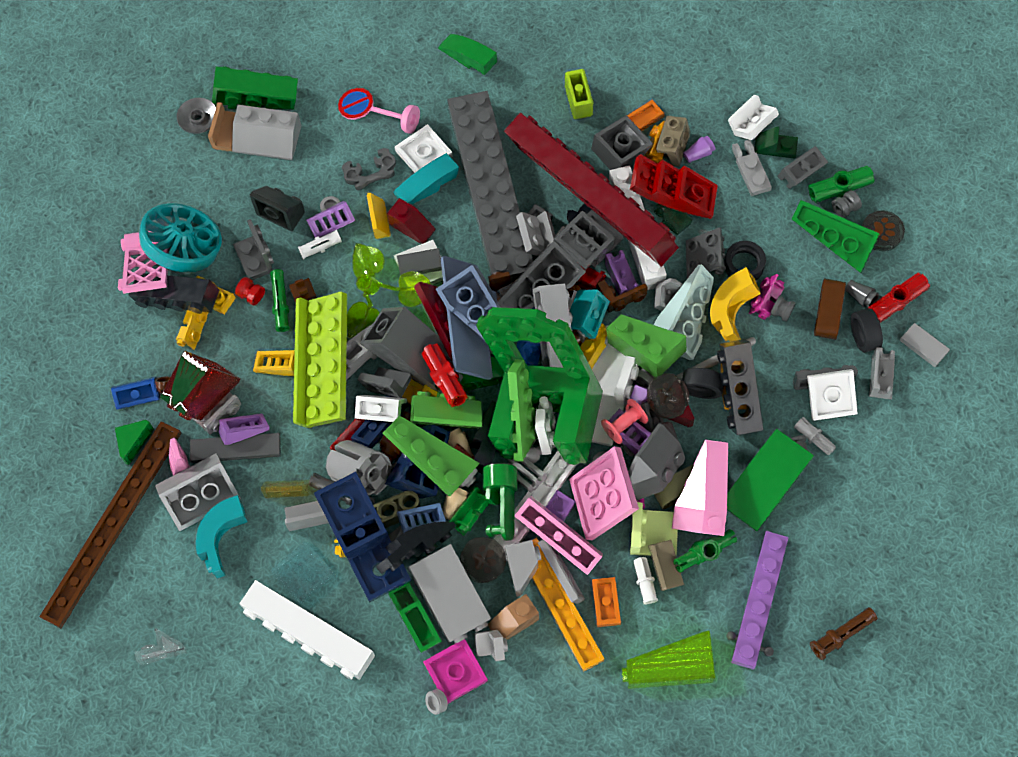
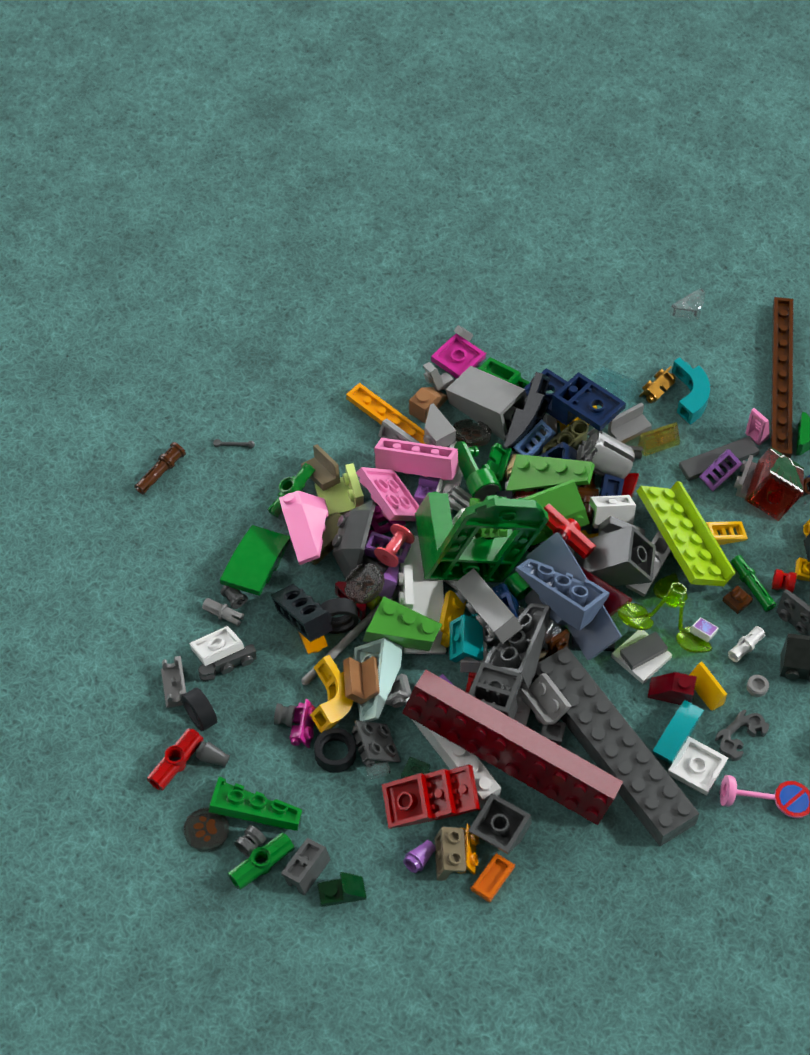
camera: 155 degrees right, 10 degrees down
(195, 491) = (729, 414): light grey slope -> none
(244, 562) = (662, 379): none -> pearl gold hinge
(307, 630) = (585, 349): white brick -> none
(333, 226) = (748, 669): medium lavender slope -> none
(351, 269) = (704, 629): none -> tile
(469, 53) = (708, 889): green slope -> none
(578, 94) = (568, 871): lime brick -> none
(606, 602) = (359, 434): orange plate -> none
(619, 302) = (453, 674): reddish brown bracket -> none
(645, 580) = (335, 456): white axle -> none
(674, 664) = (290, 406): clear neon green slope -> none
(701, 308) = (361, 679): none -> medium nougat panel
(751, 169) = (359, 854): light grey hinge -> none
(752, 118) = (374, 906): white bracket -> none
(759, 600) = (234, 474): medium lavender plate -> none
(829, 309) = (239, 729): reddish brown beam -> none
(924, 345) = (140, 726): light grey tile -> none

